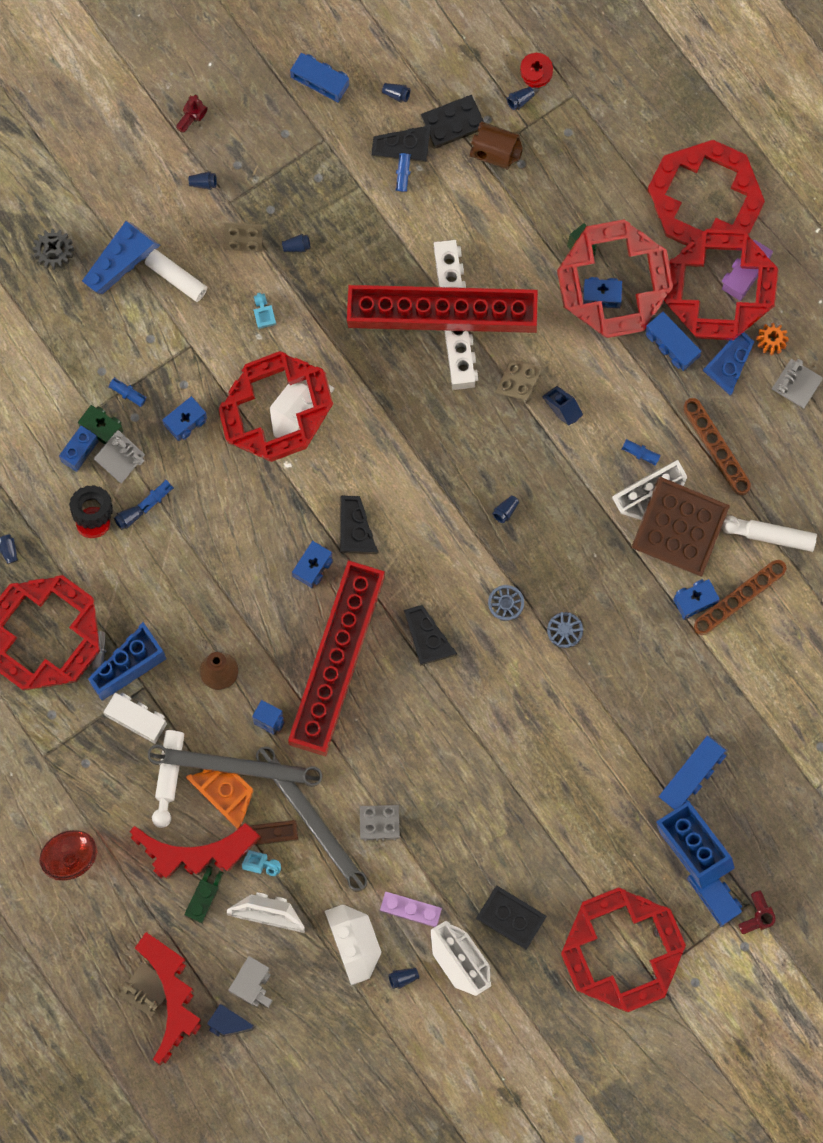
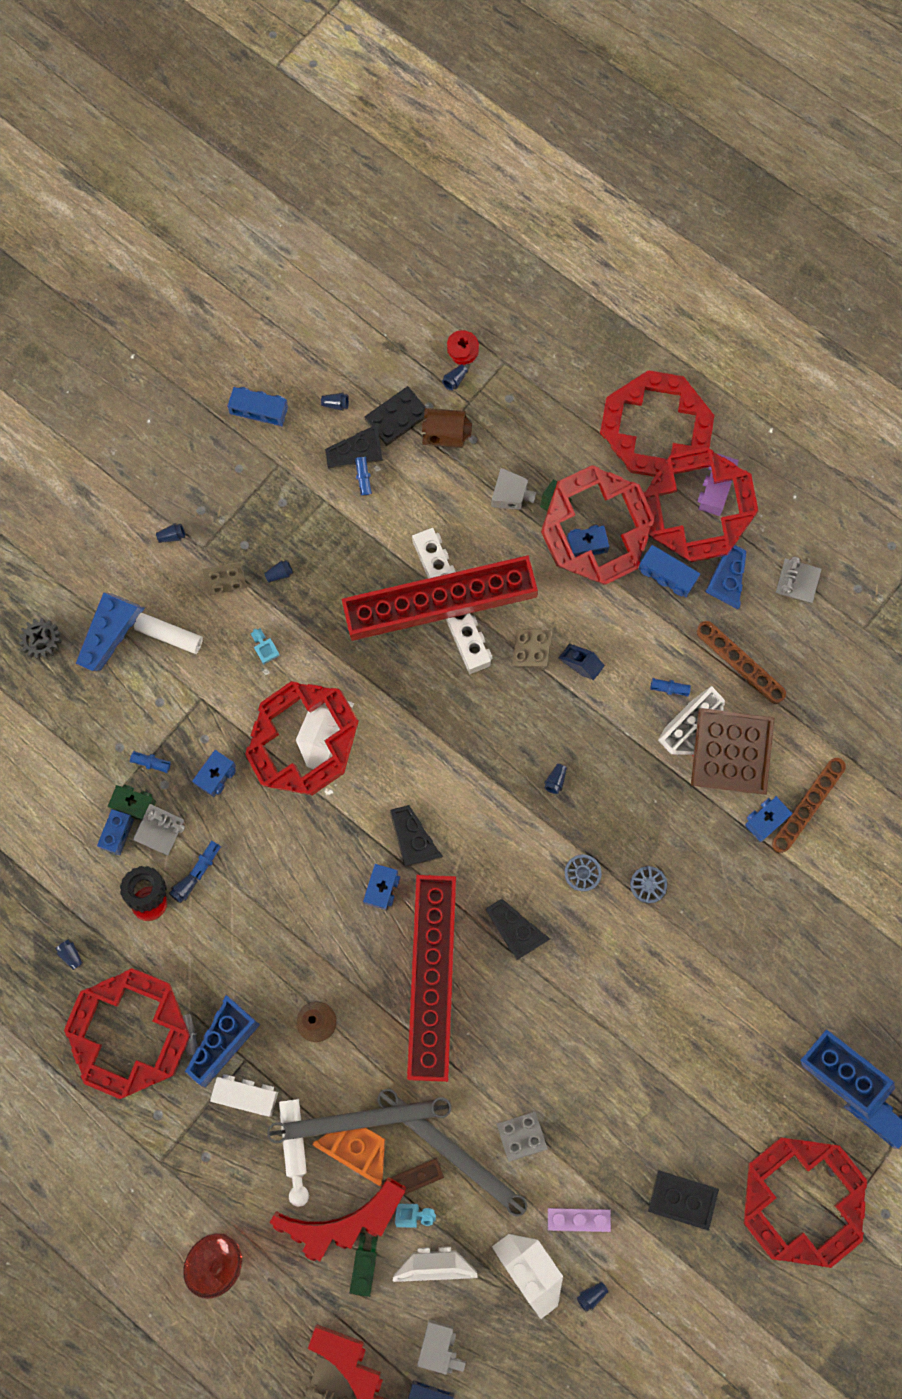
camera: 15 degrees left, 0 degrees up
(194, 111) = (144, 469): dark red axle -> none
(268, 717) = (380, 1060): blue brick -> none
(460, 959) = (647, 1262): white wedge -> none
(542, 224) = (511, 491): none -> light grey torso
(693, 772) = (821, 998): blue wedge -> none
(765, 340) = (767, 539): orange gear -> none
(770, 533) = (820, 733): white piece -> none

